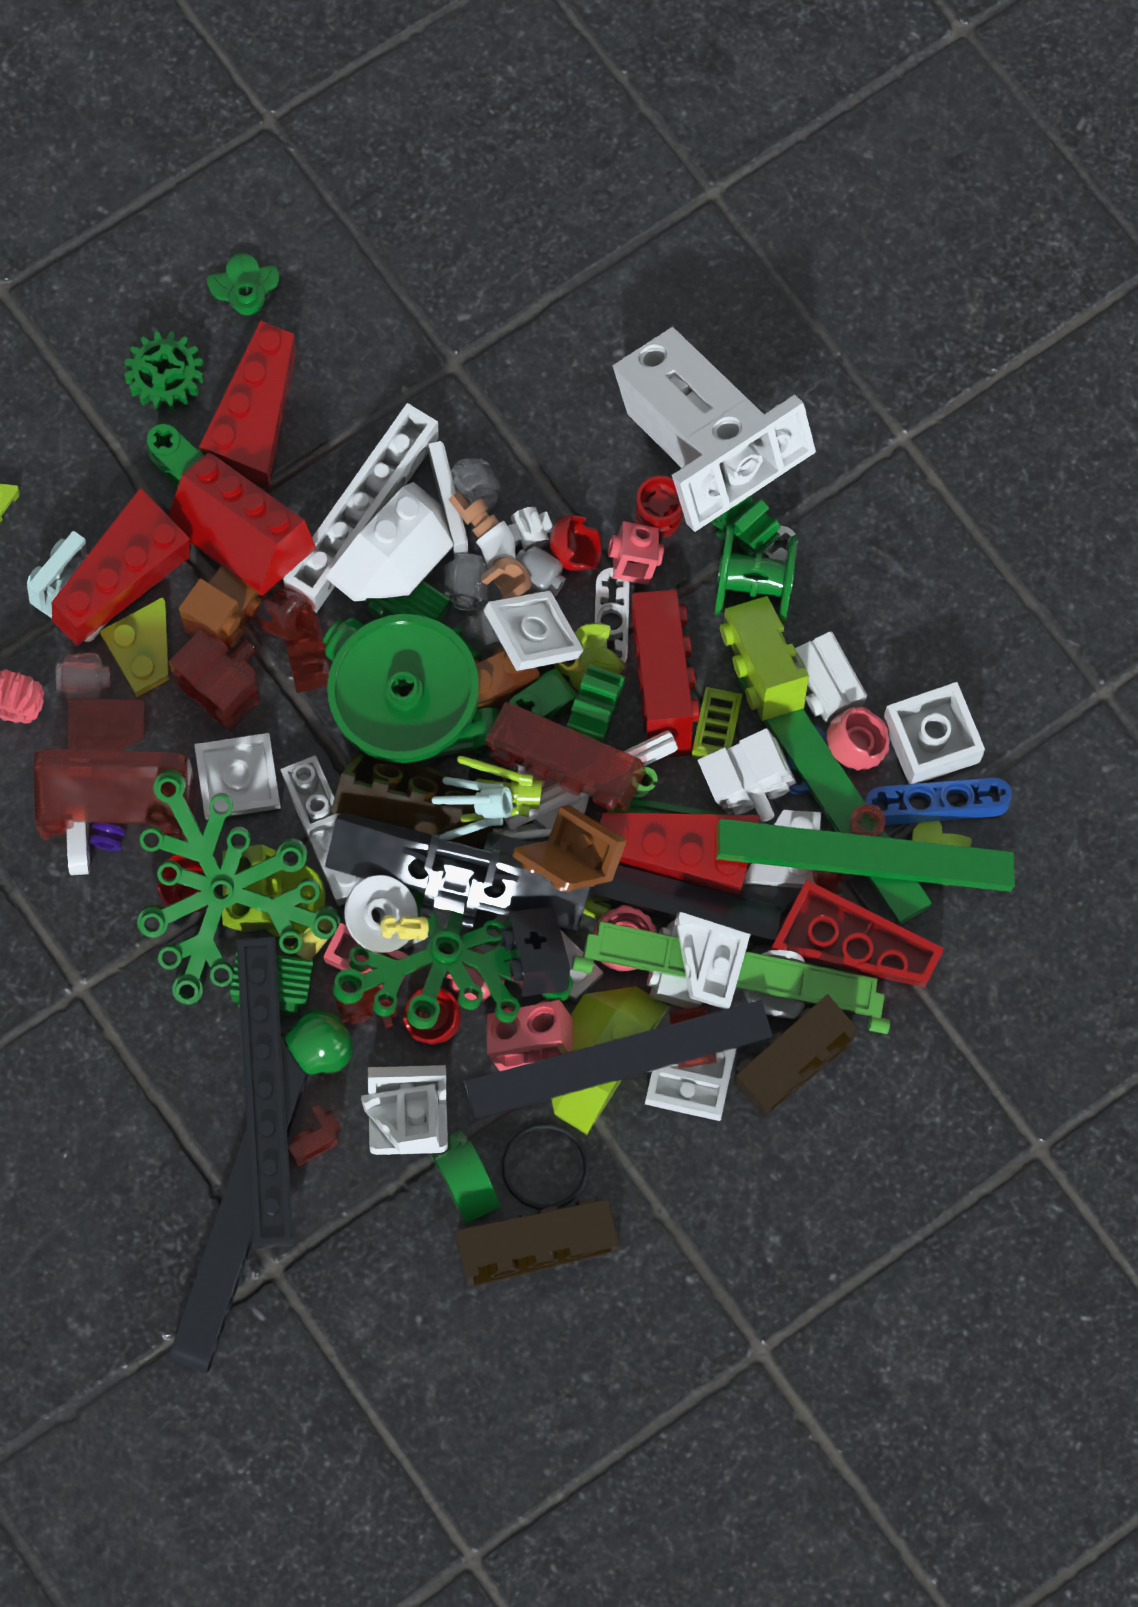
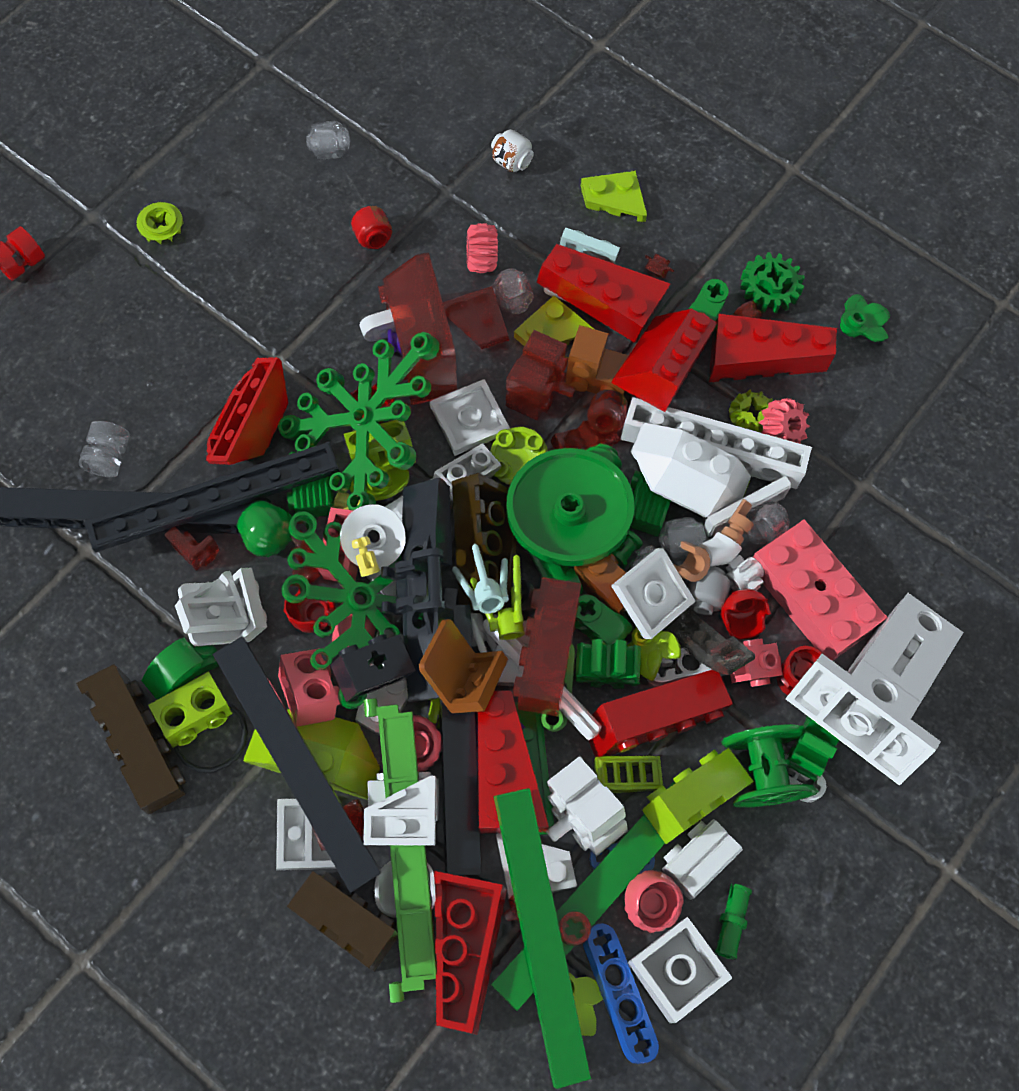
camera: 75 degrees right, 5 degrees down
(97, 494) = (658, 265): none -> clear red plate
(141, 1209) = (104, 449): none -> clear wheel
(160, 1035) = (249, 414): none -> red wedge
(199, 414) = (748, 310): none -> clear red bush
(305, 730) = (514, 449): none -> lime dish
(338, 464) = (740, 406): none -> lime gear
(360, 421) = (785, 420): none -> coral gear
(509, 1176) = (187, 702): none -> lime brick
(605, 449) = (818, 591): none -> coral brick
(607, 592) = (708, 645): none -> clear smoke slope
(897, 667) = (733, 921): none -> green pin

